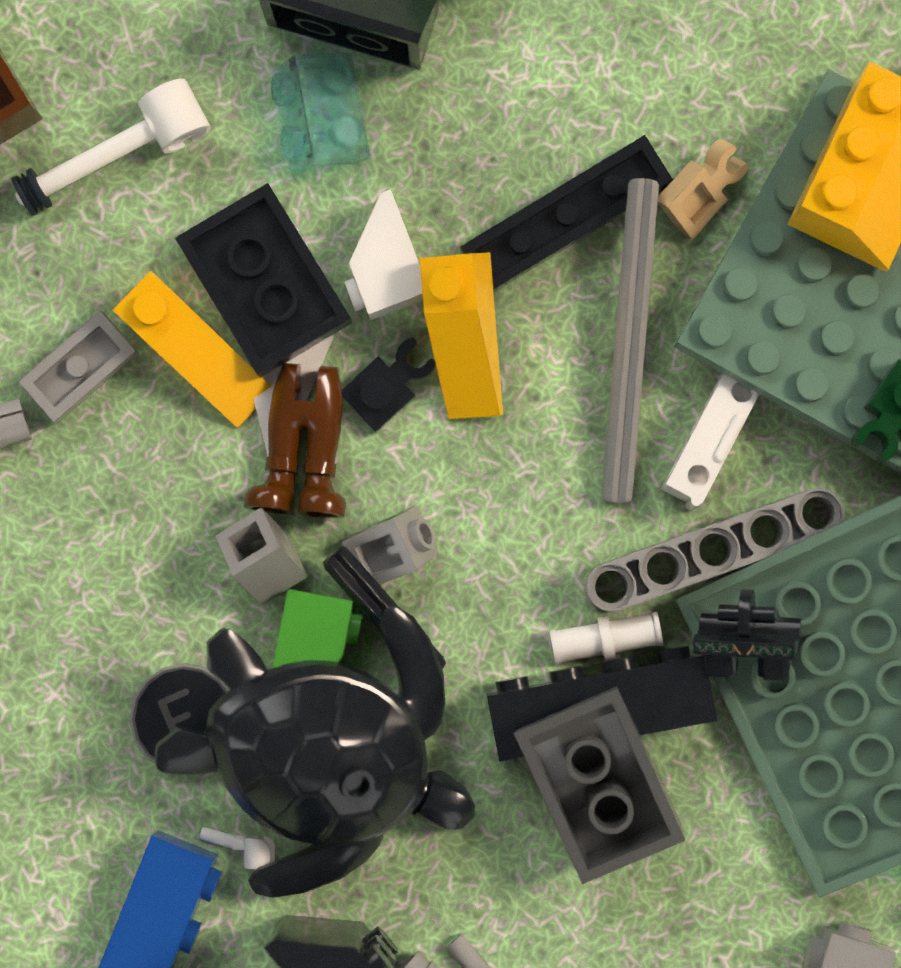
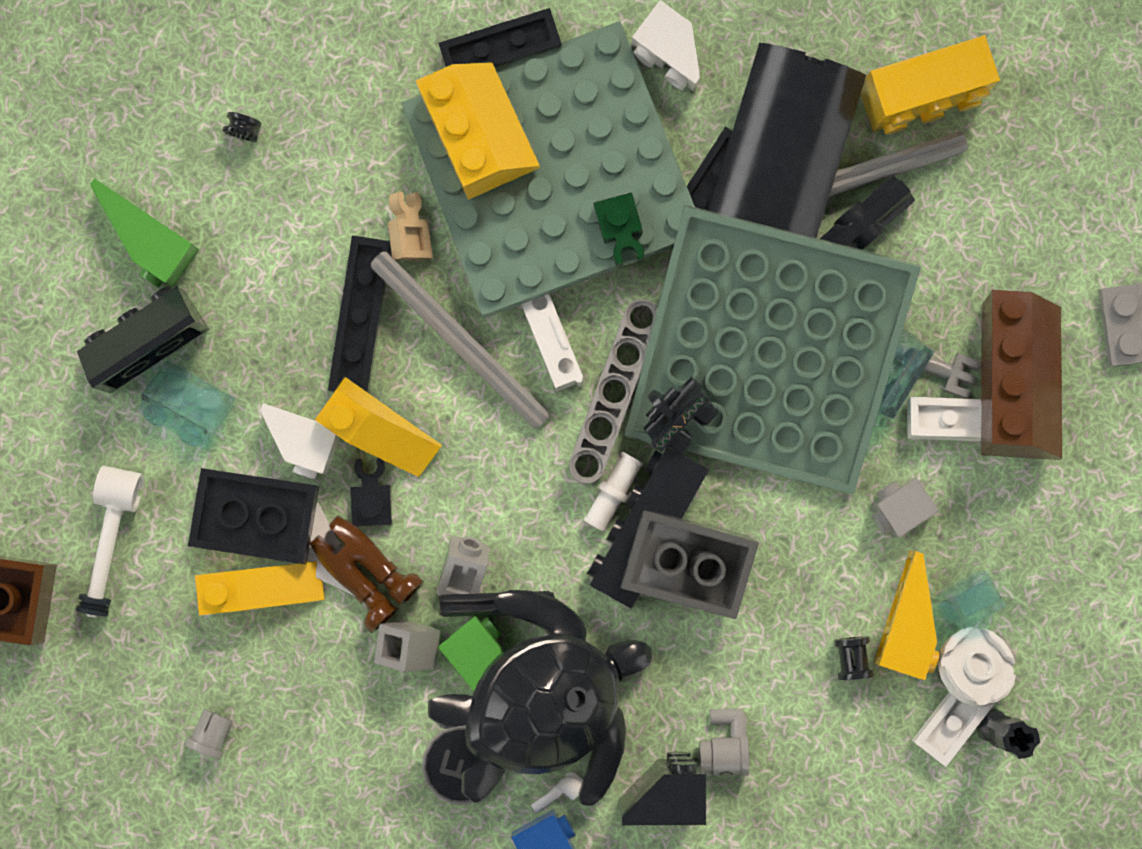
camera: 55 degrees left, 0 degrees up
(78, 367) = (214, 661): light grey plate -> none

